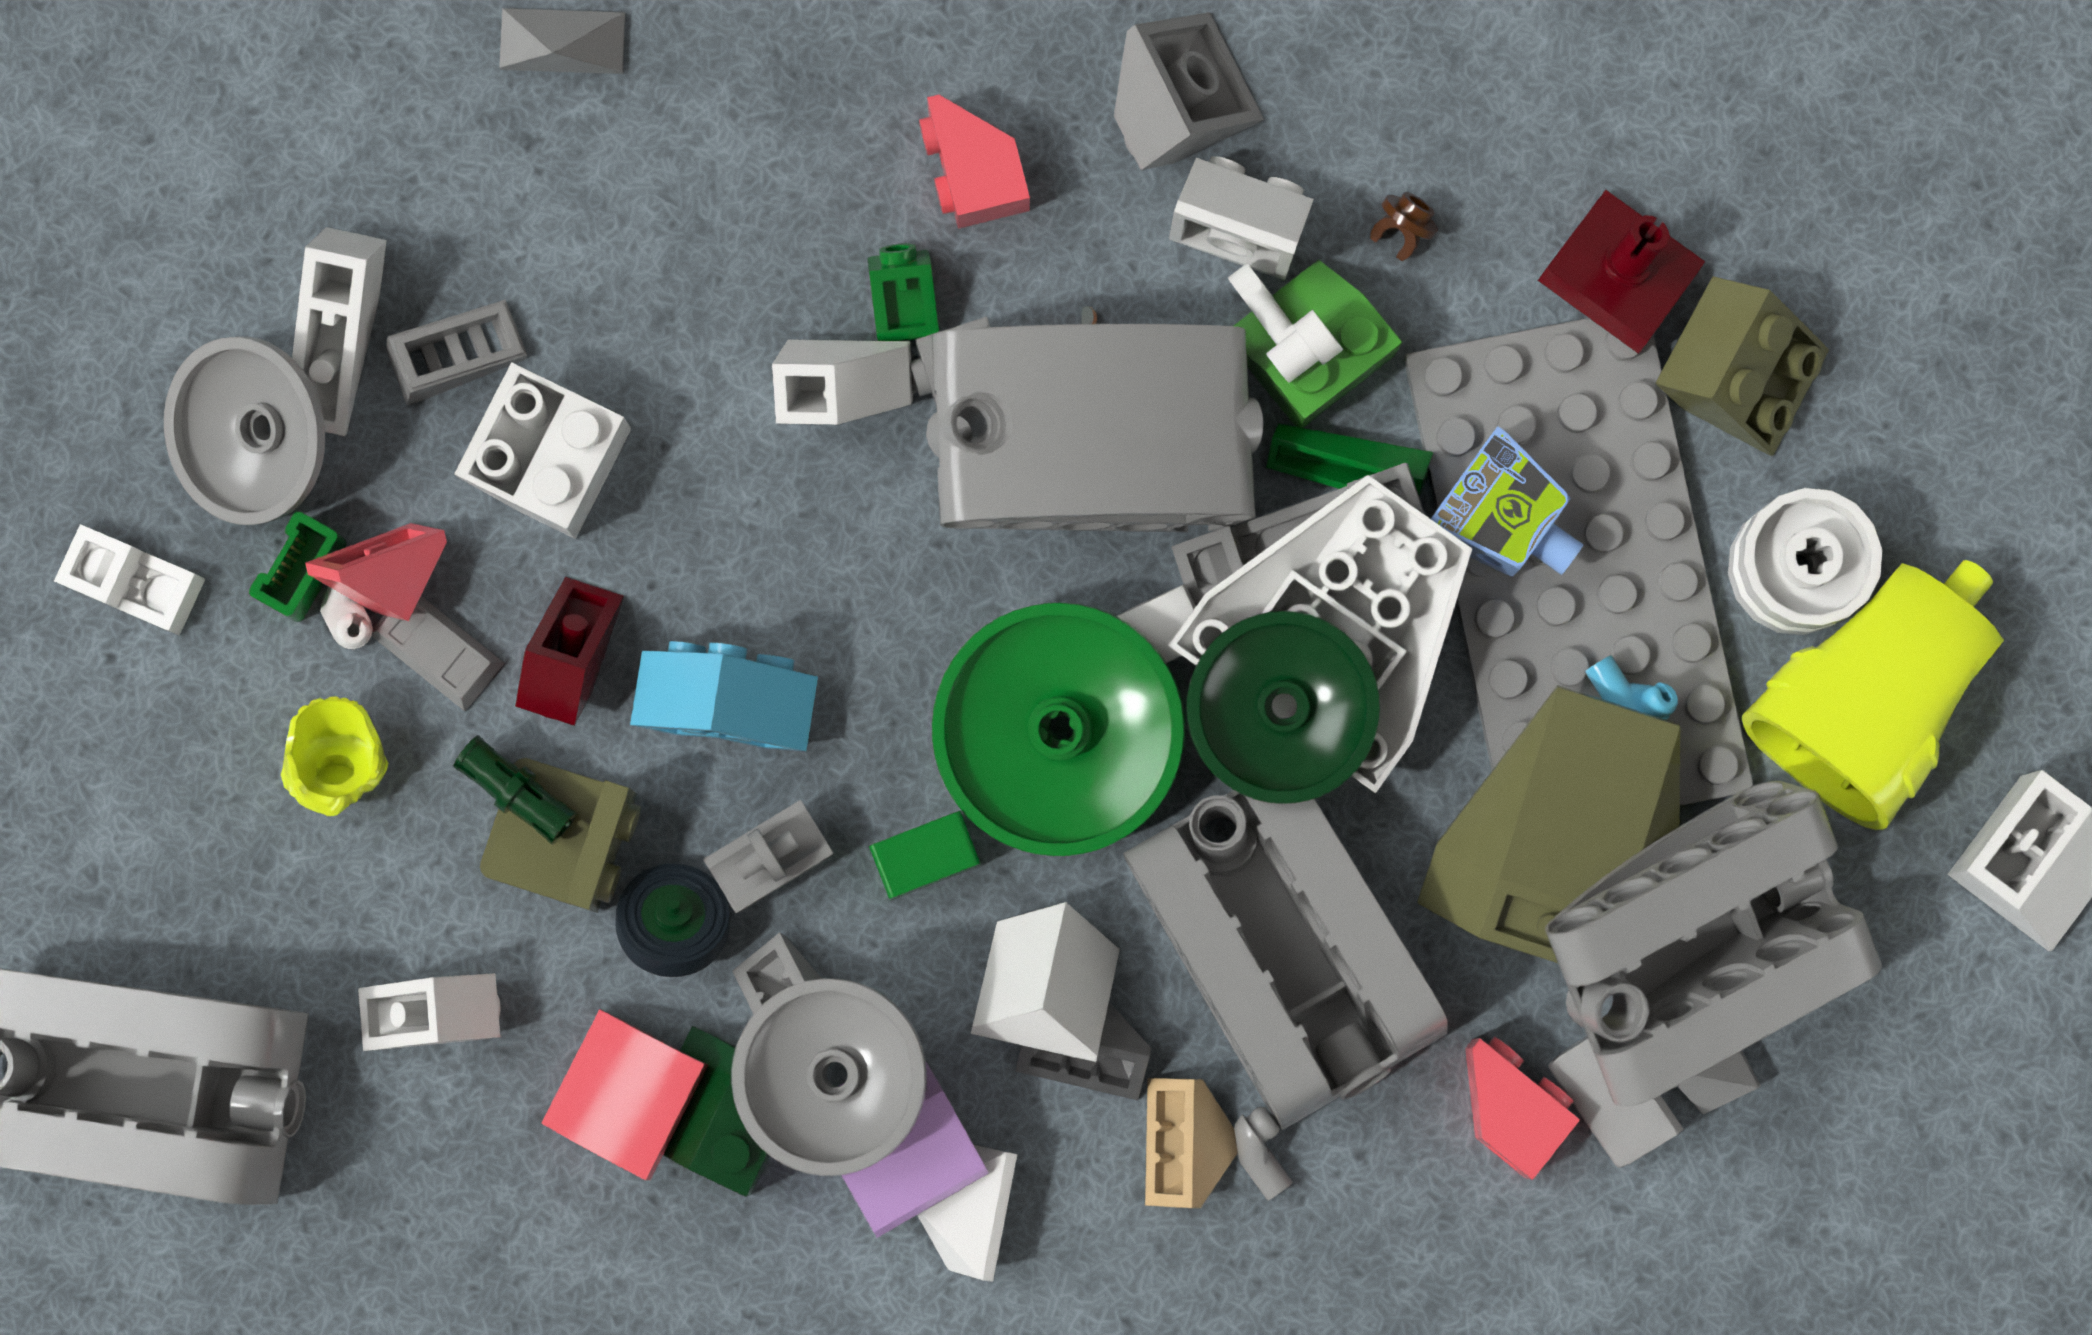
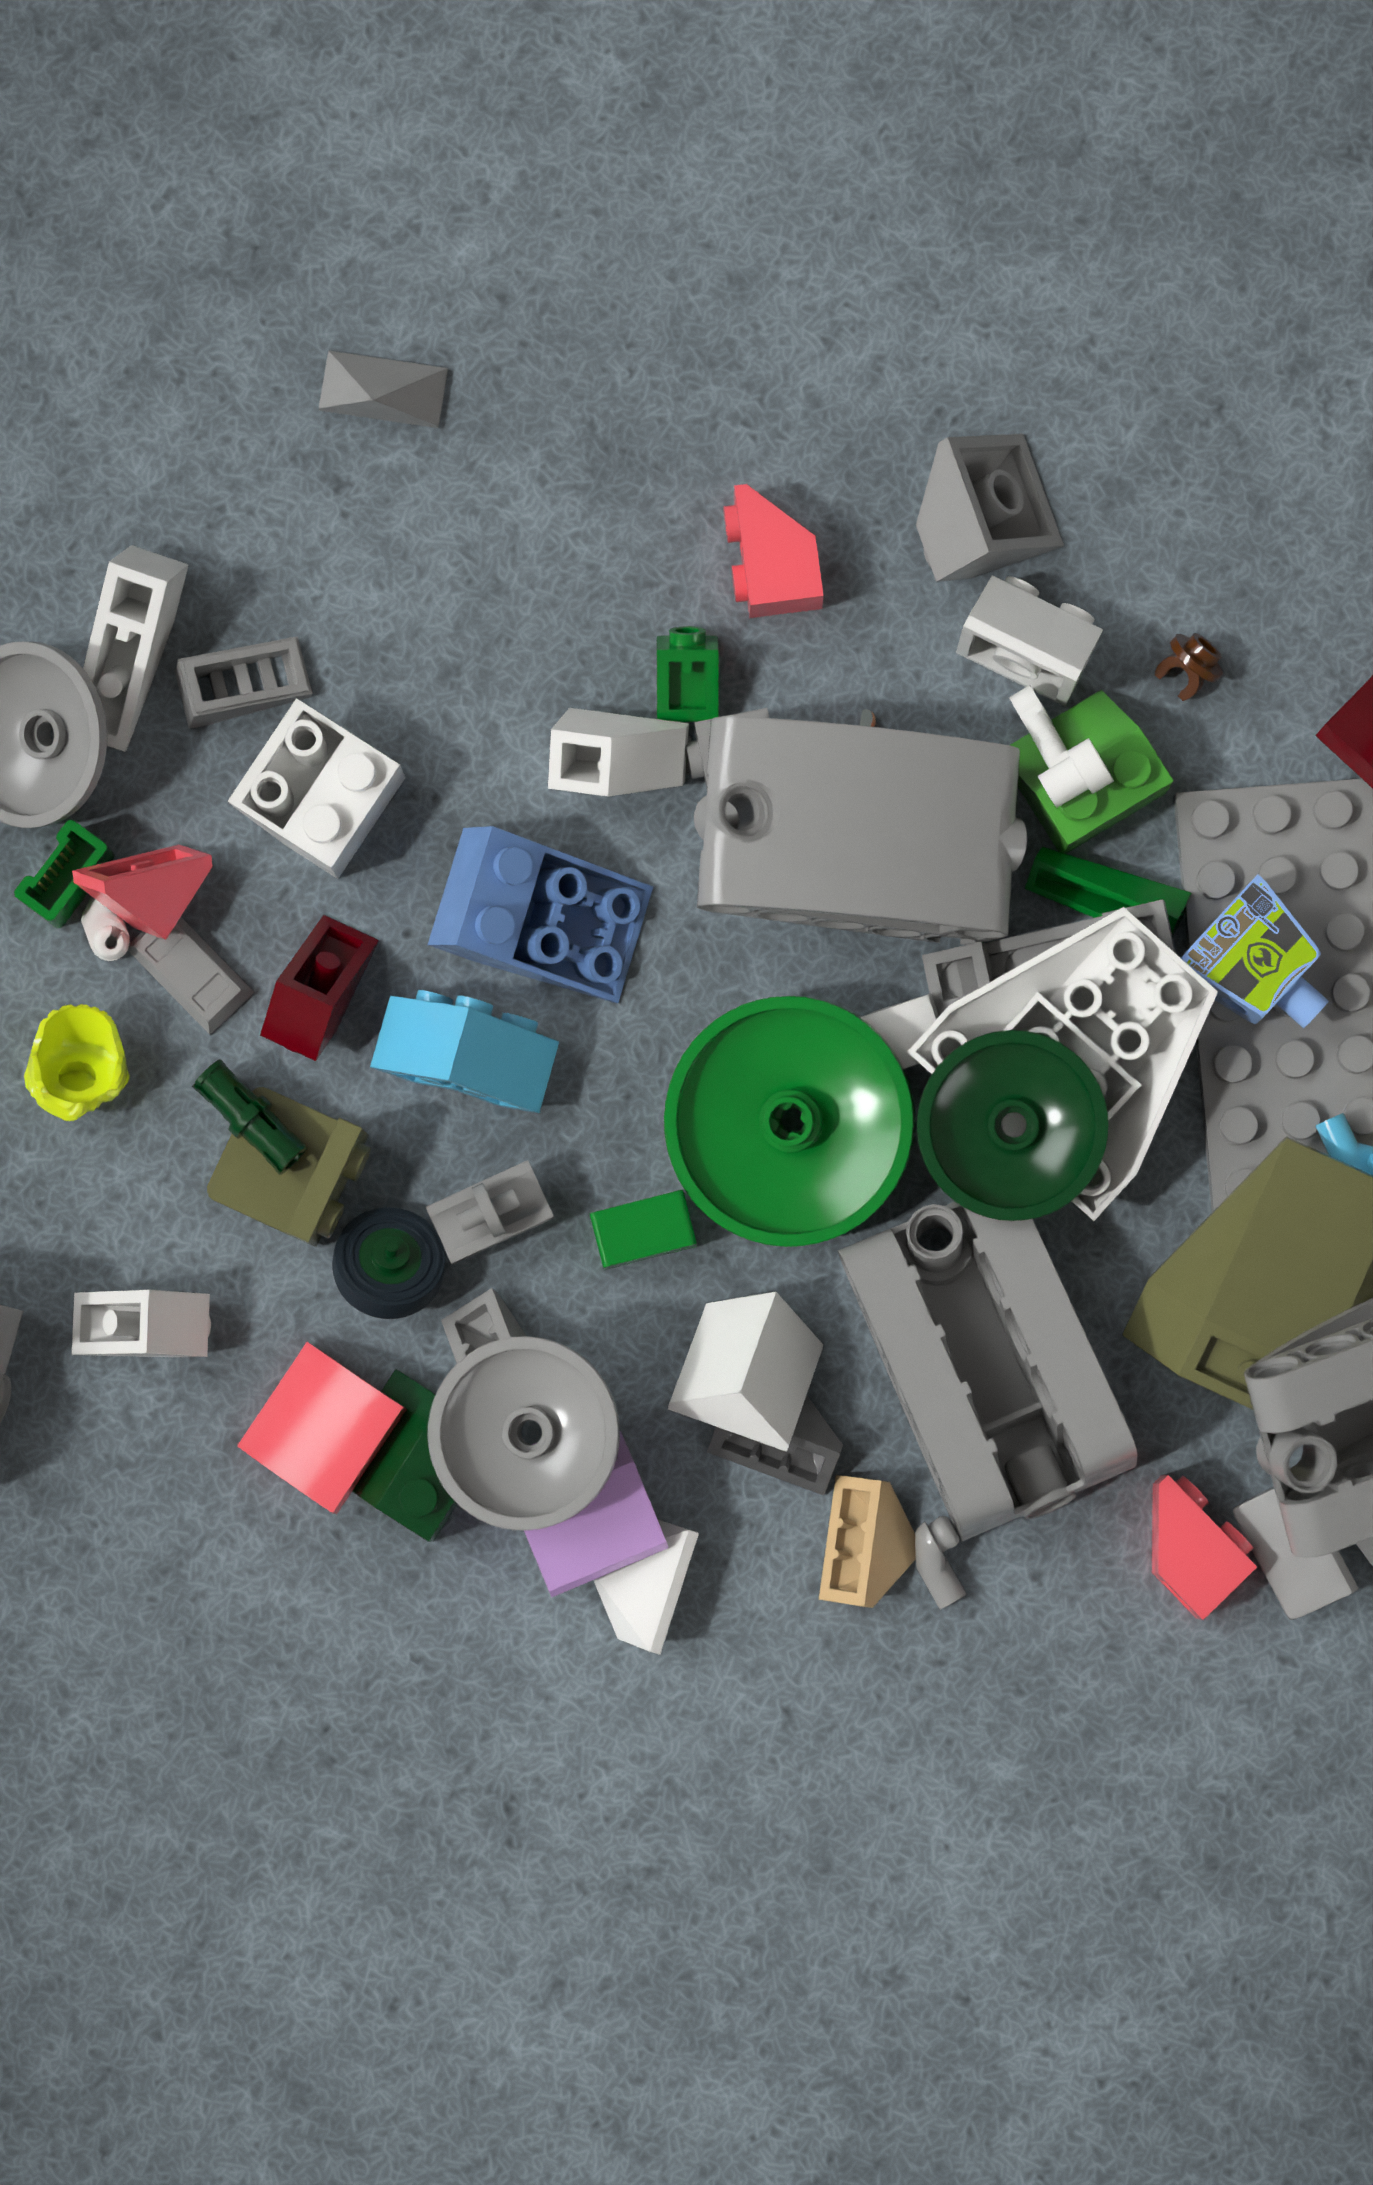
camera: 15 degrees right, 0 degrees up
(783, 549) = (540, 913): none -> medium blue slope

